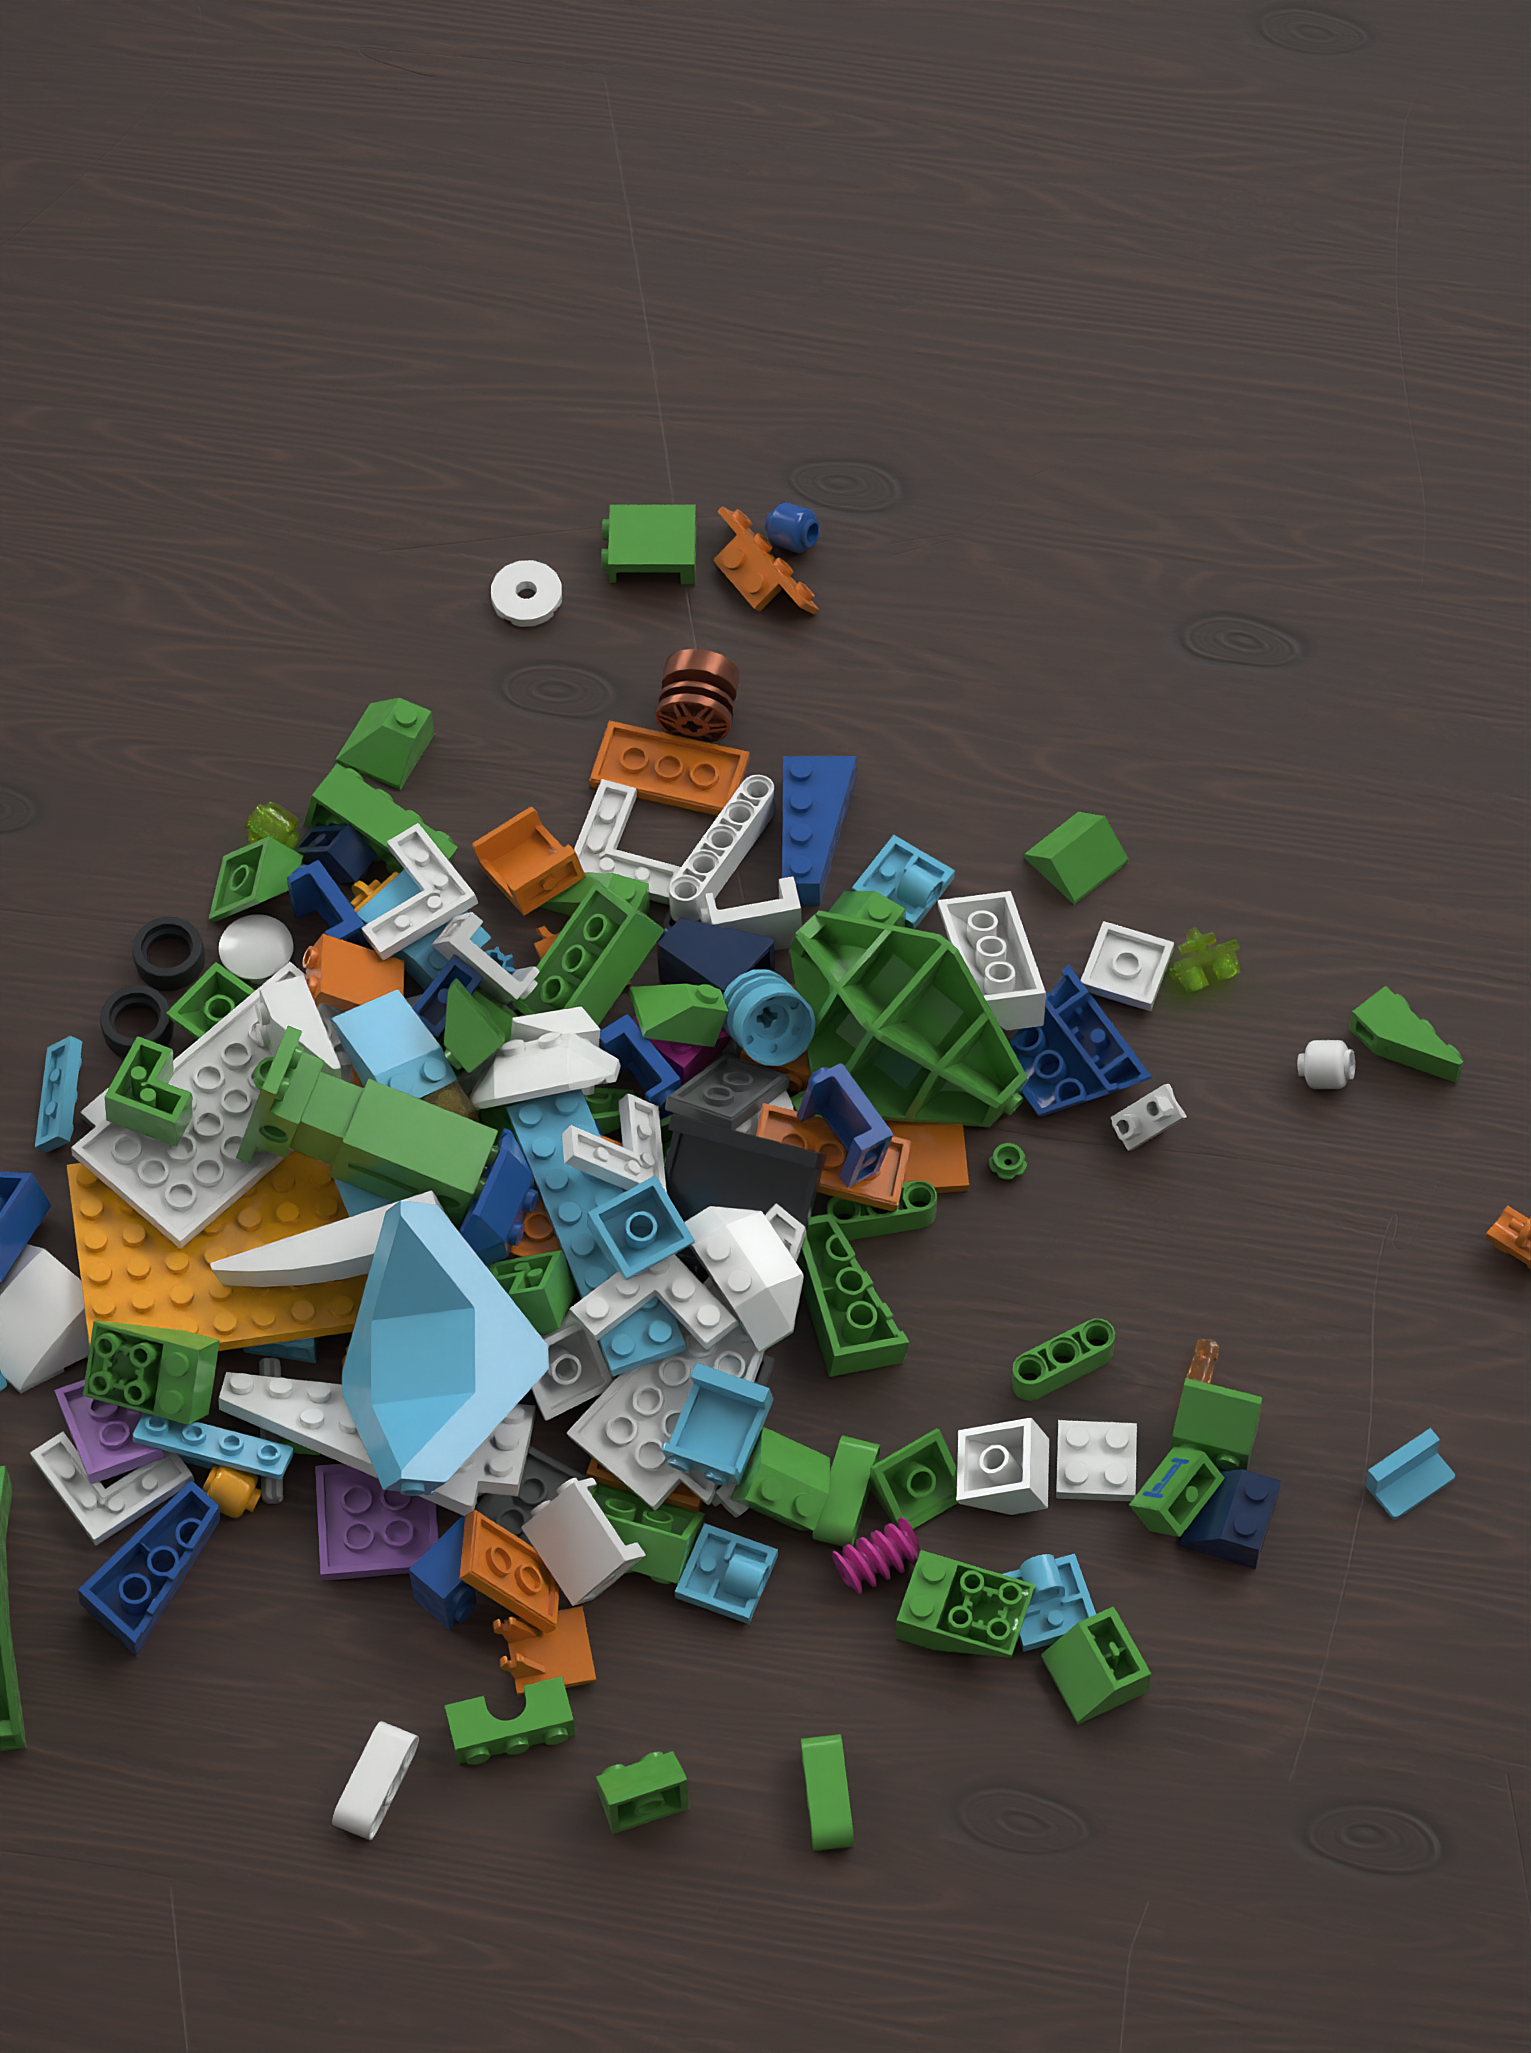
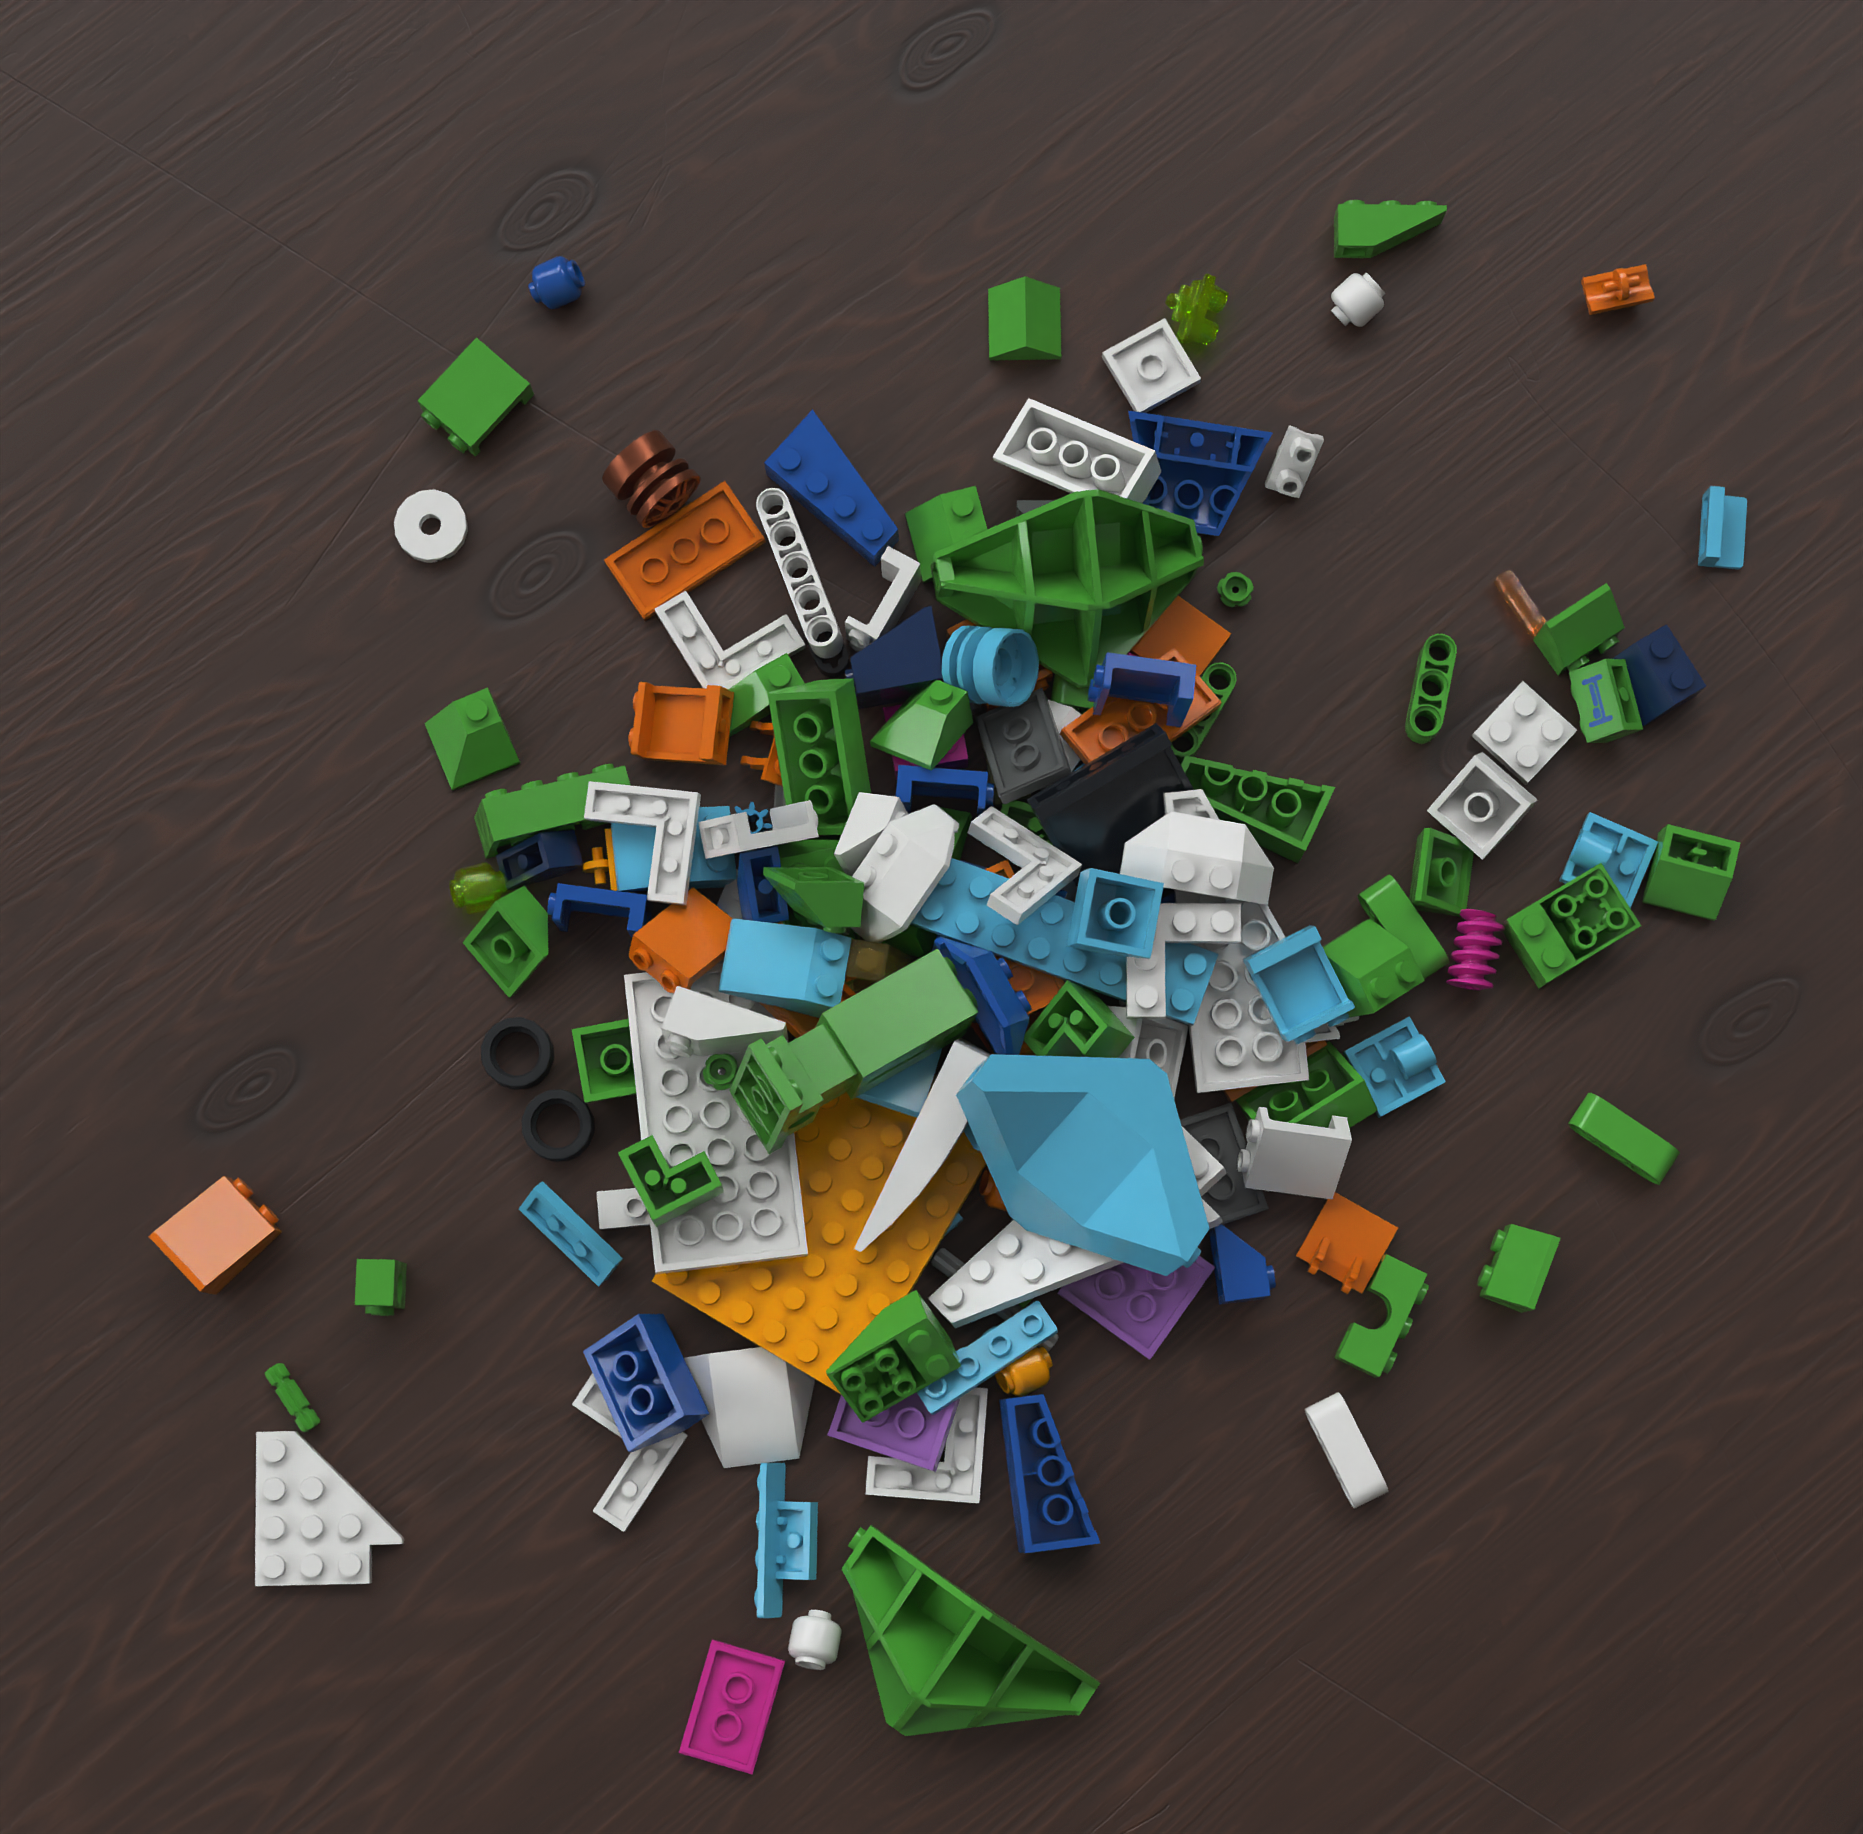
camera: 50 degrees left, 20 degrees up
(255, 947) = (568, 983): white dish -> none
(508, 1572) = (1279, 1228): orange tile -> none
(755, 570) = (567, 340): orange bracket -> none
(906, 878) = (938, 462): medium azure plate -> none

